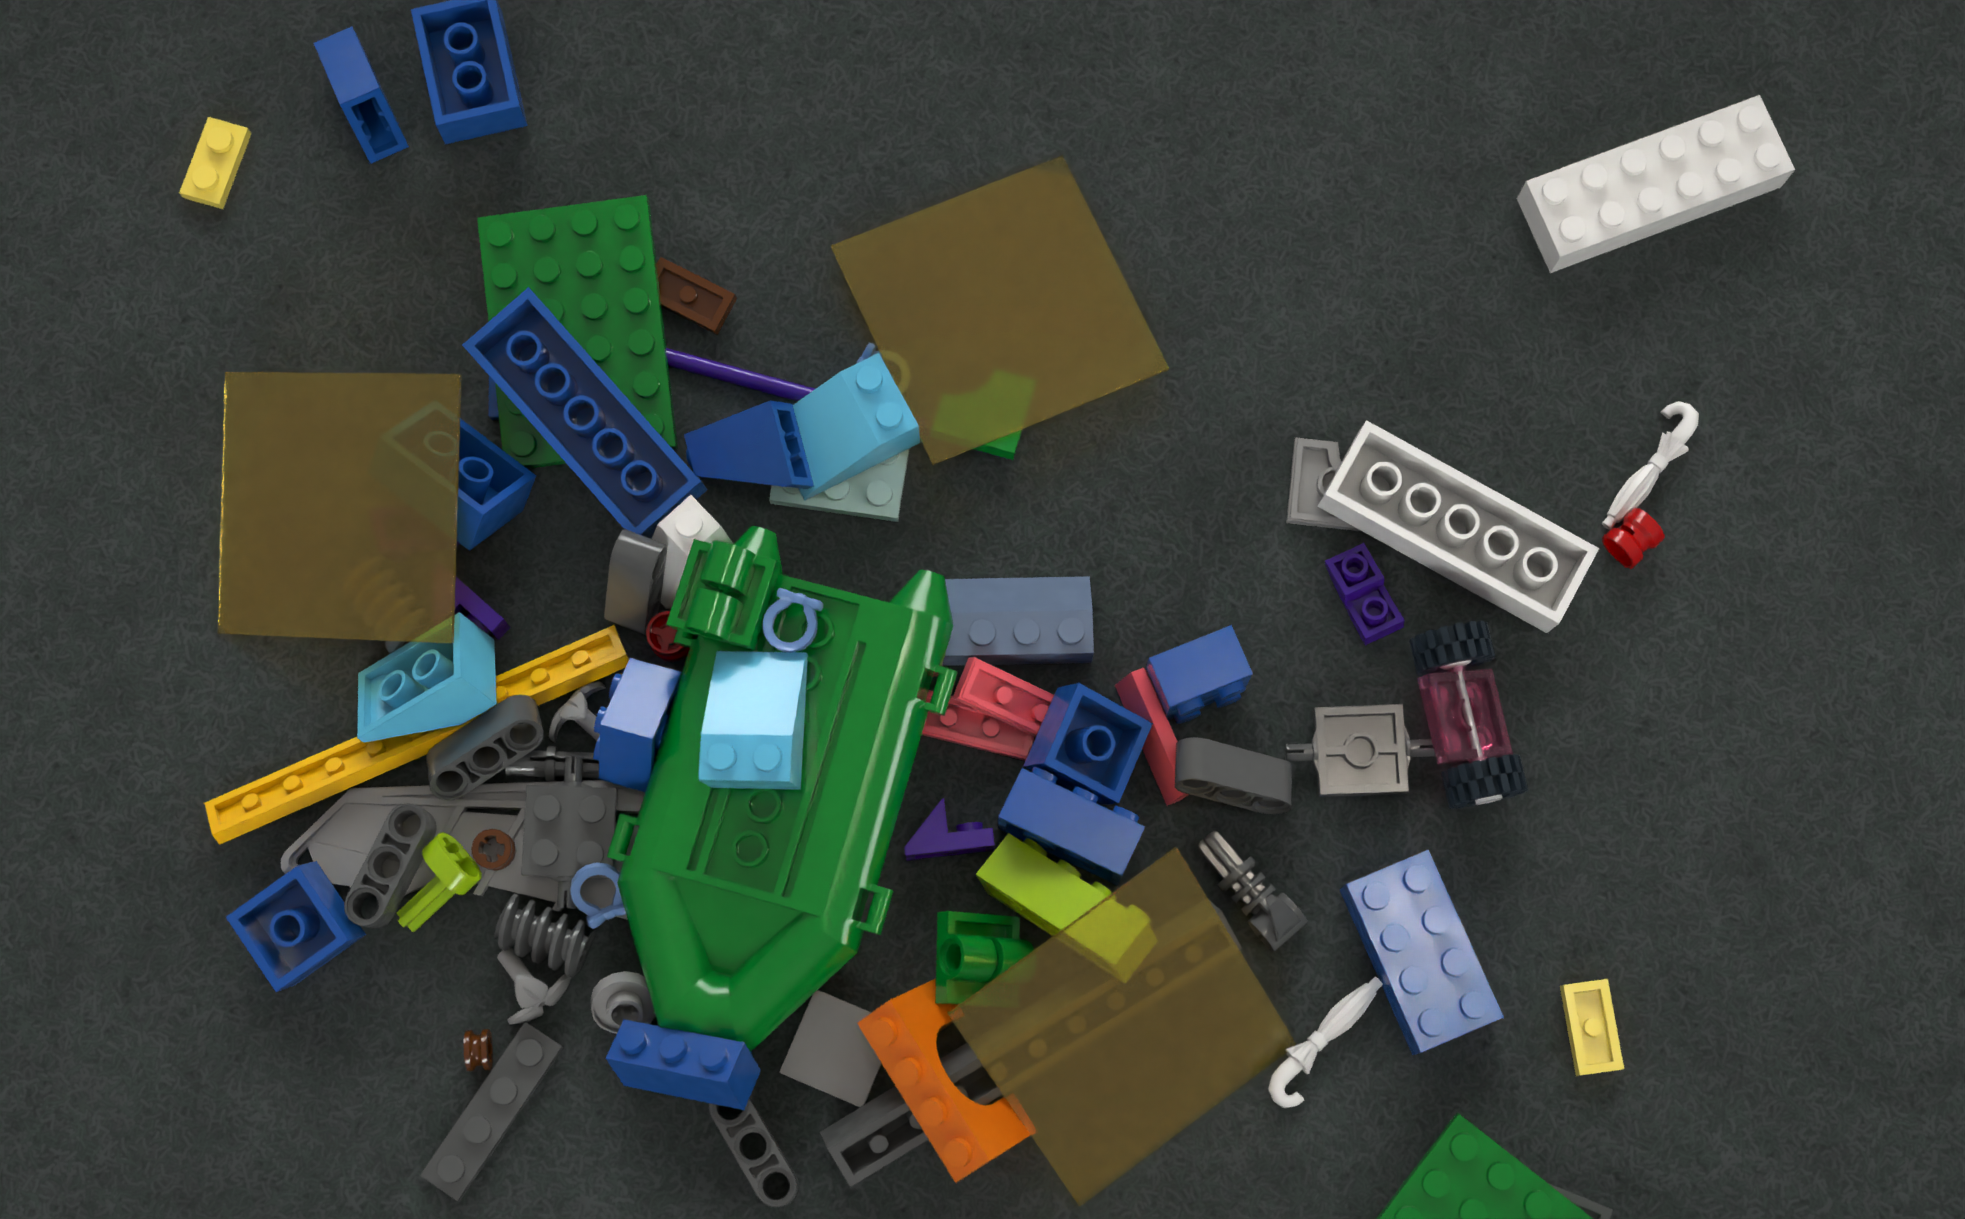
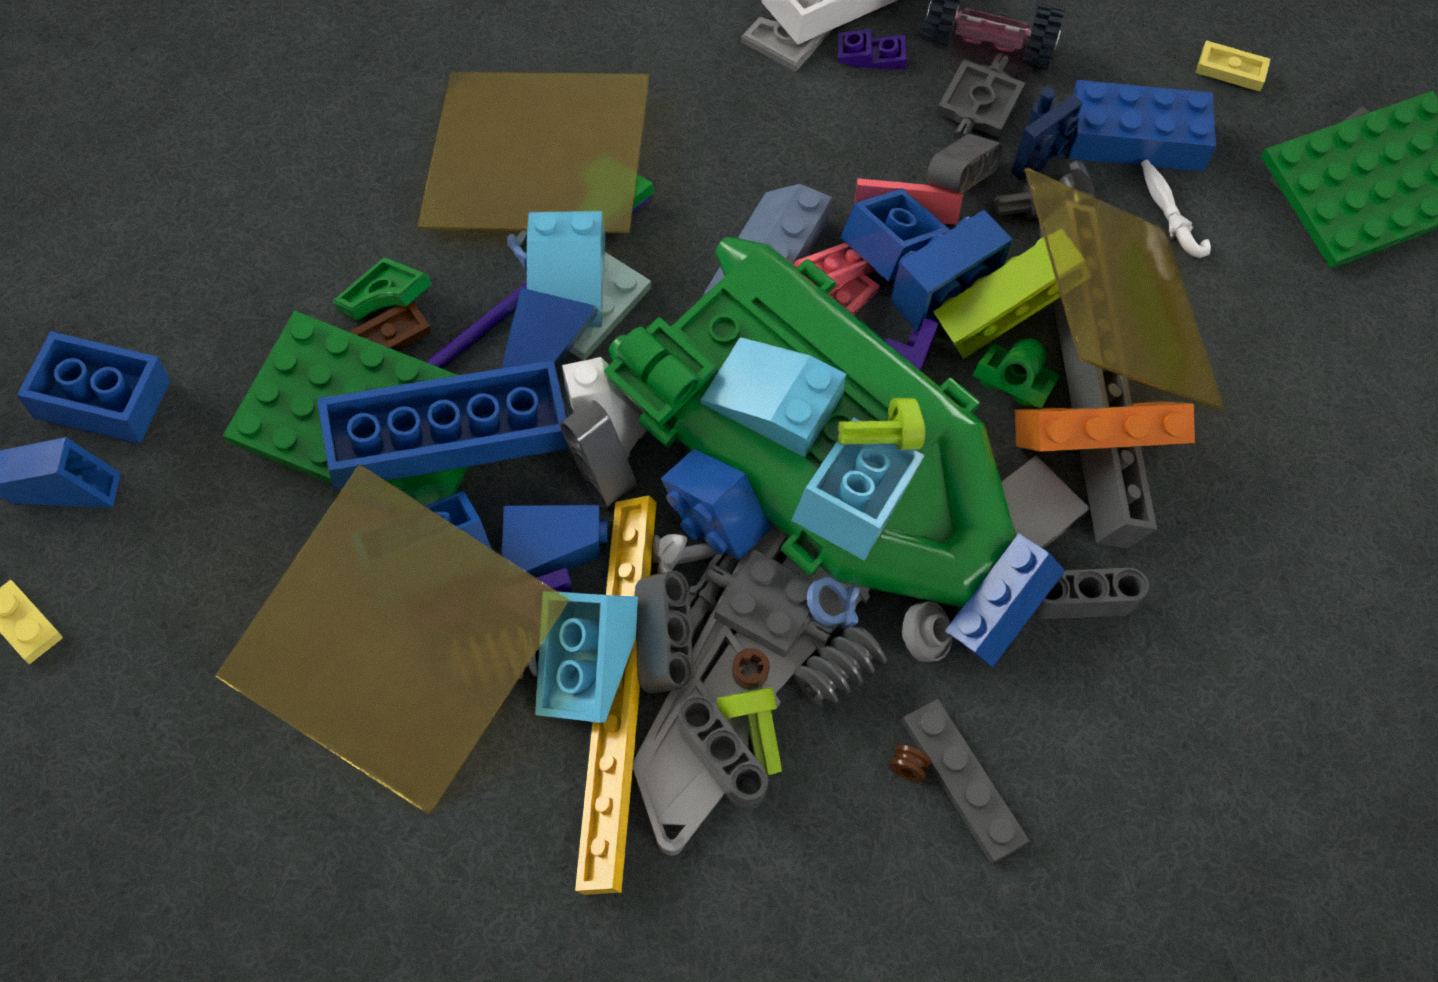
camera: 65 degrees left, 15 degrees down
(295, 926) = (732, 854): blue brick -> none
(529, 991) = (885, 694): light grey plant -> none
(532, 583) = (552, 536): none -> blue slope
(661, 636) = (649, 457): red wheel -> none
(694, 856) = (856, 493): none -> medium azure slope
(735, 256) = (382, 286): none -> green tile
(768, 870) = (903, 428): none -> lime piece
(786, 599) = (707, 314): medium blue piece -> none
(1200, 674) = (883, 141): blue brick -> none
(1340, 857) = (1047, 132): none -> dark blue plate

